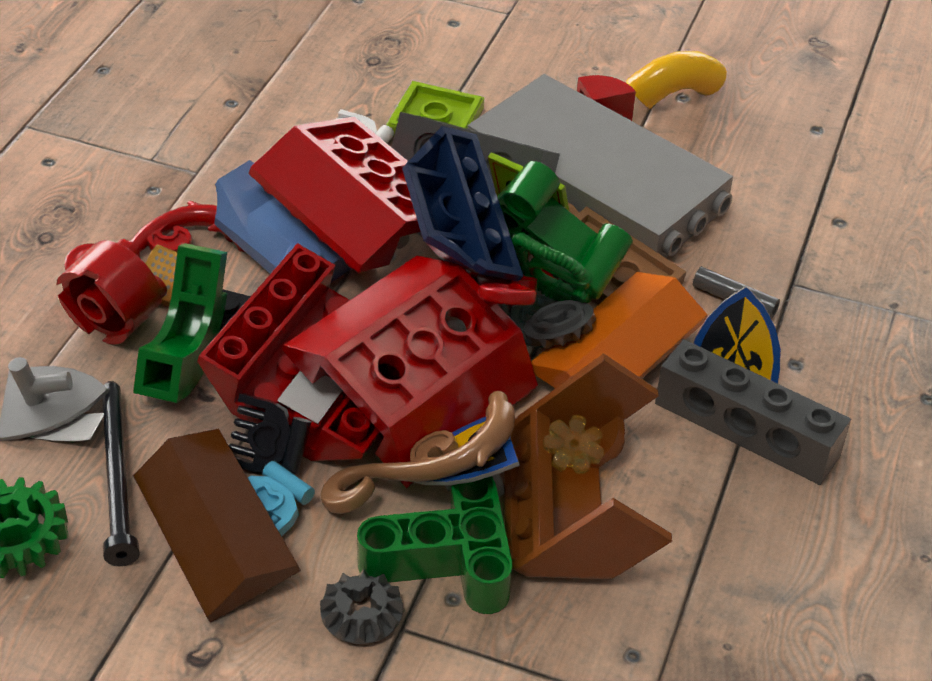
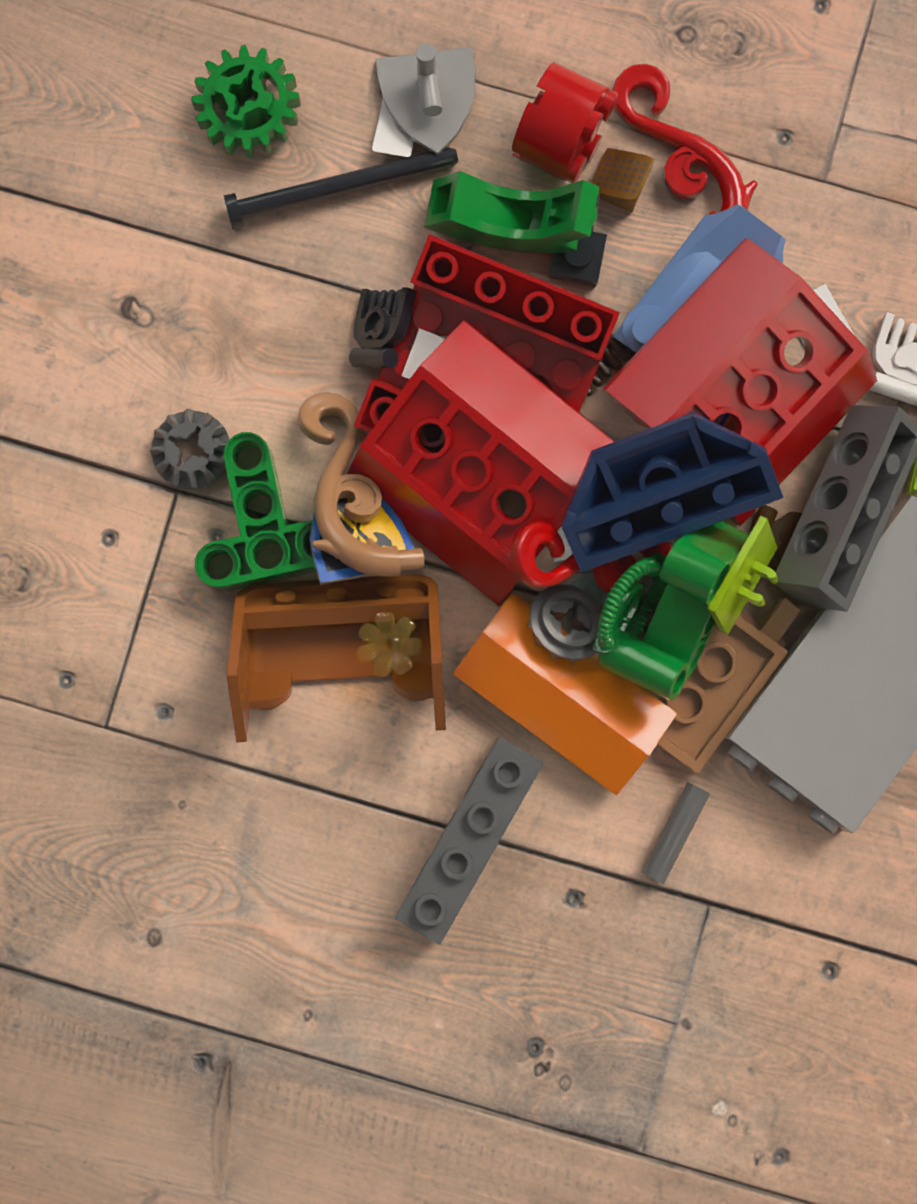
camera: 85 degrees right, 40 degrees up
(214, 522) = (277, 293): reddish brown slope -> none
(278, 493) = (313, 342): medium azure piece -> none
(743, 334) = (560, 826): shield -> none

